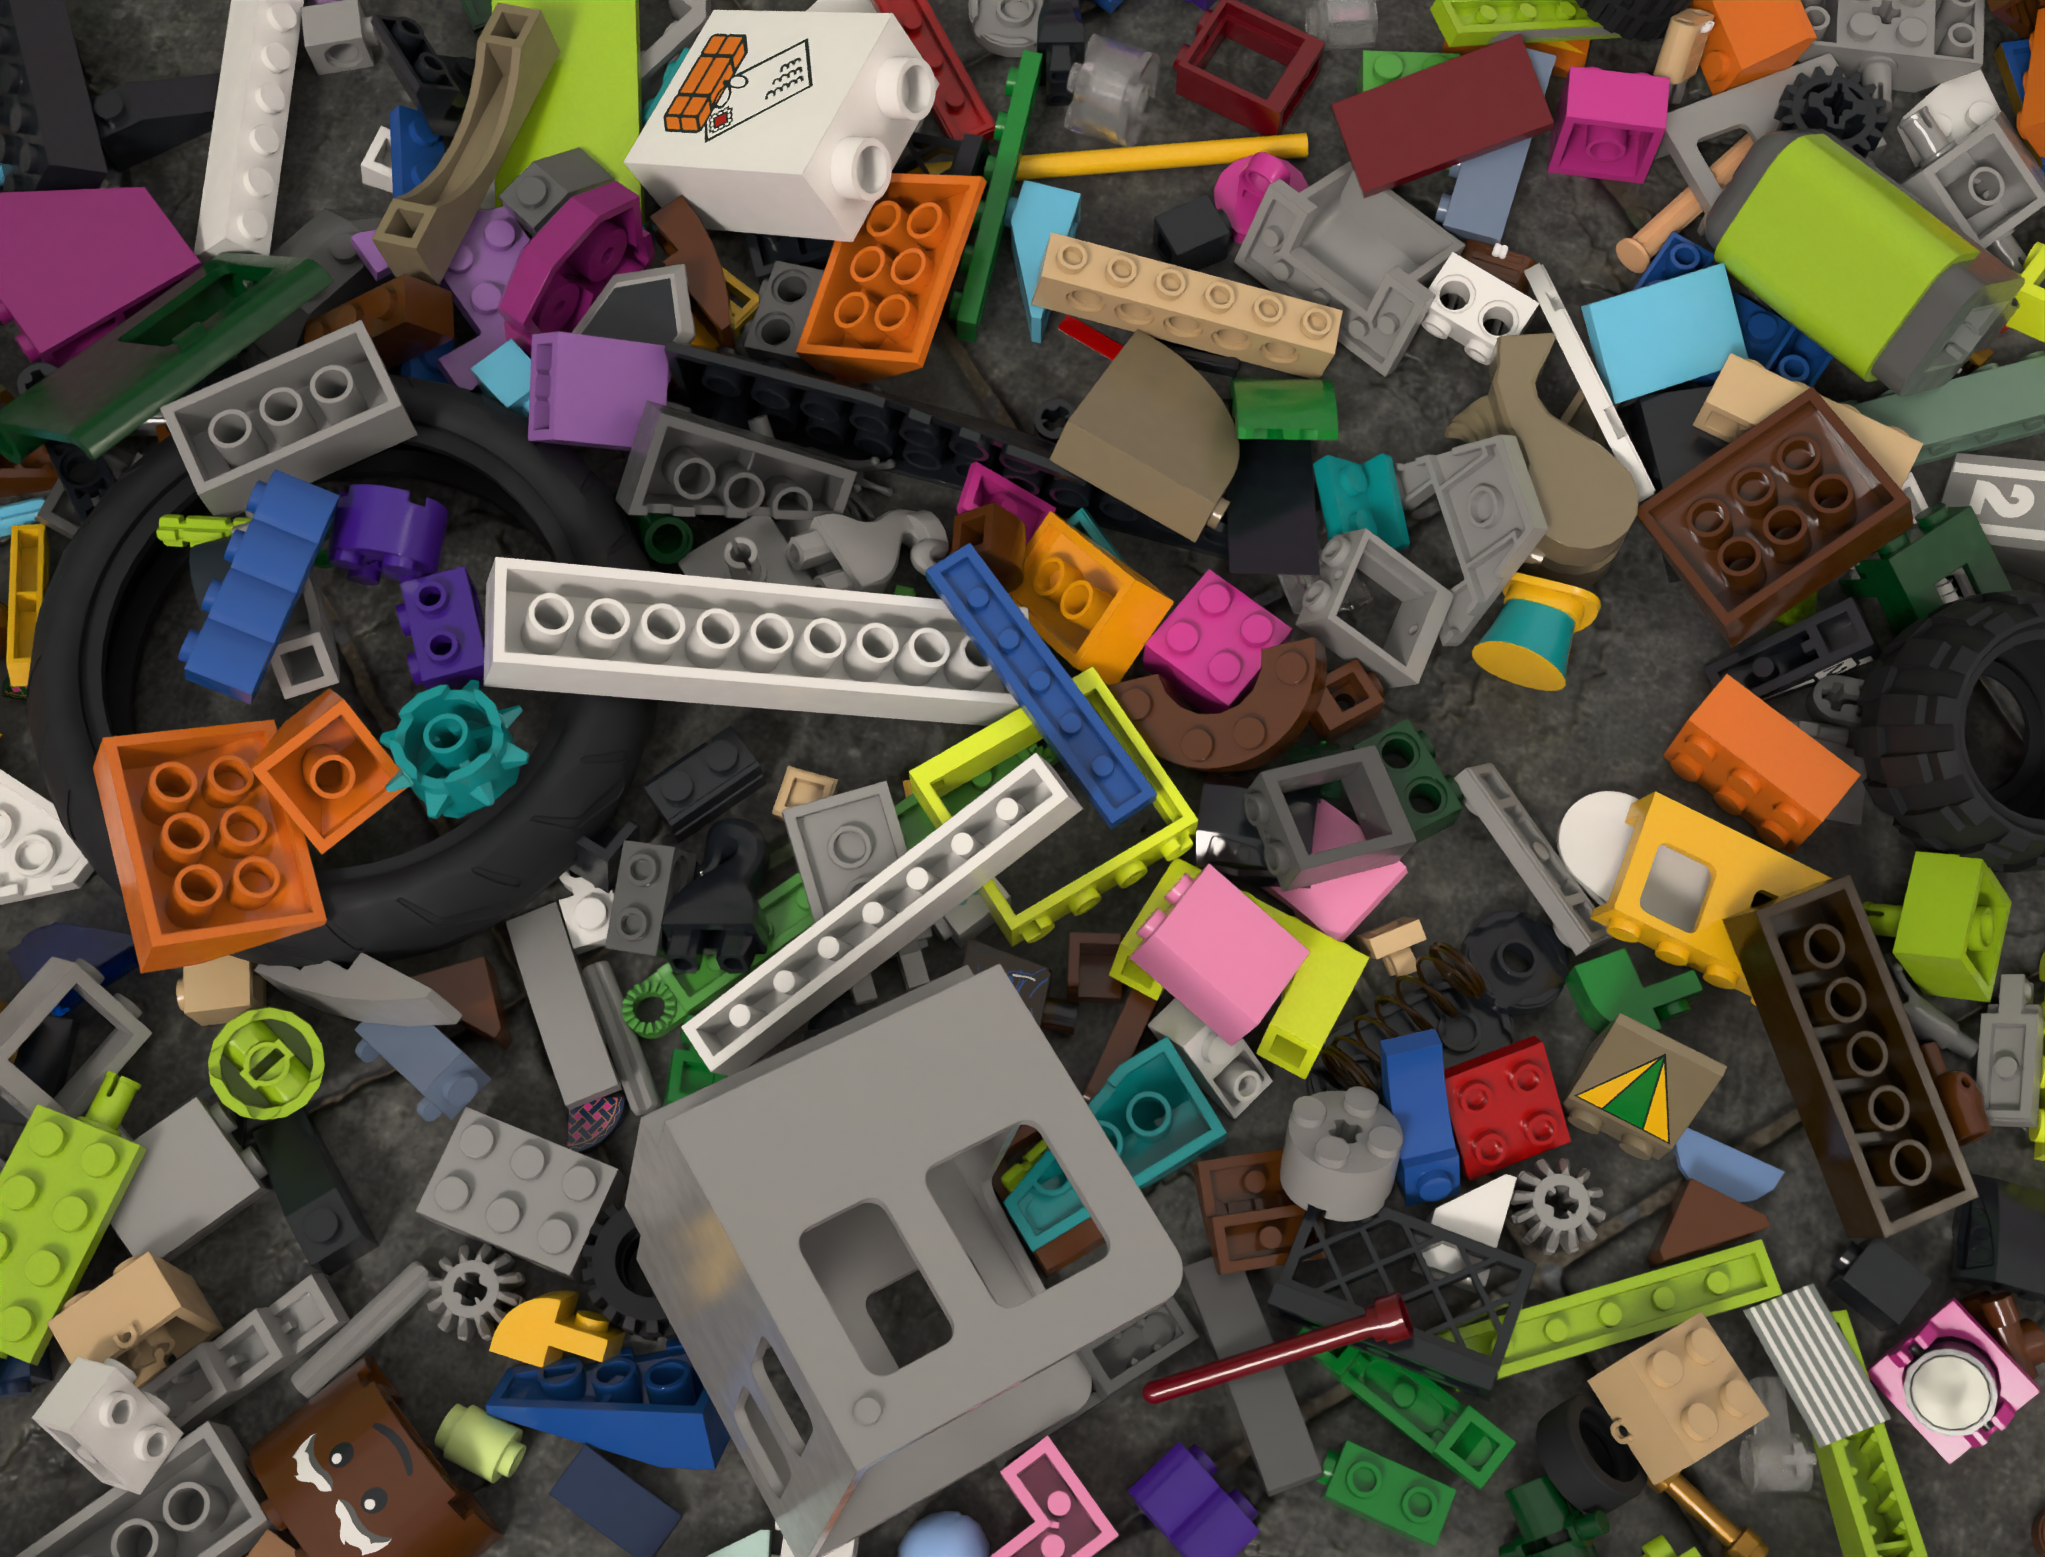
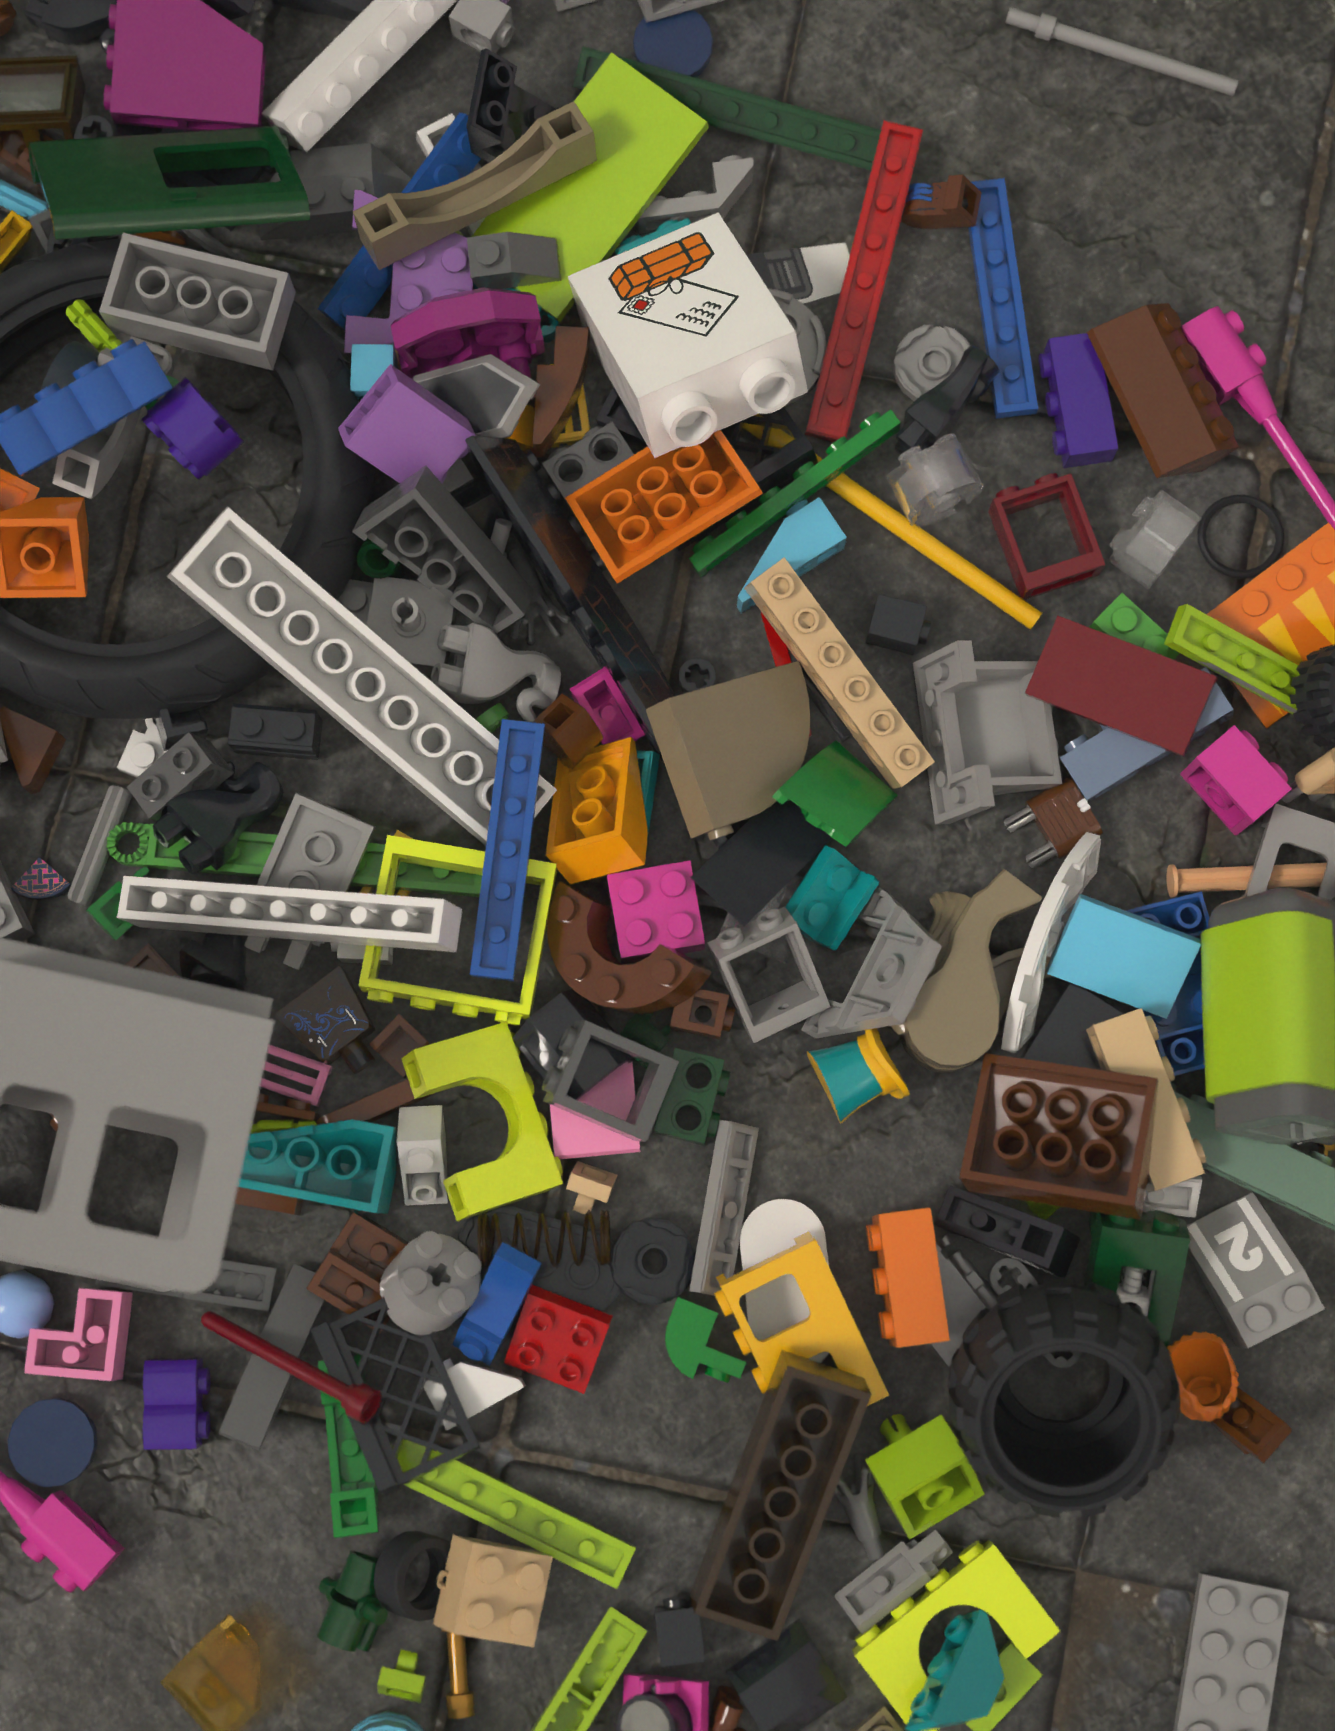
camera: 40 degrees right, 10 degrees up
(400, 316) = (325, 266): reddish brown brick -> none
(445, 629) = (180, 516): dark purple brick -> none
(454, 750) = (98, 595): teal brick -> none
(562, 1006) = (79, 797): light grey slope -> none
(801, 788) = (332, 788): tan tile -> none
(1218, 953) = (462, 1106): bright pink brick -> none
(1245, 184) = (972, 620): dark pink tile -> none
(1385, 1493) = (287, 1490): green brick -> none
(1484, 300) = (1033, 831): white brick -> none
(1572, 1196) = (551, 1425): light grey gear -> none
(1639, 1087) = (637, 1402): dark tan slope -> none
(1702, 1221) = (610, 1508): reddish brown slope -> none
(1724, 1167) = (655, 1489): medium blue tile -> none
(1773, 1456) = (526, 1669): clear axle -> none
(1817, 1365) = (596, 1644): light grey sticker -> none
(1959, 1096) = (828, 1572): reddish brown piece -> none

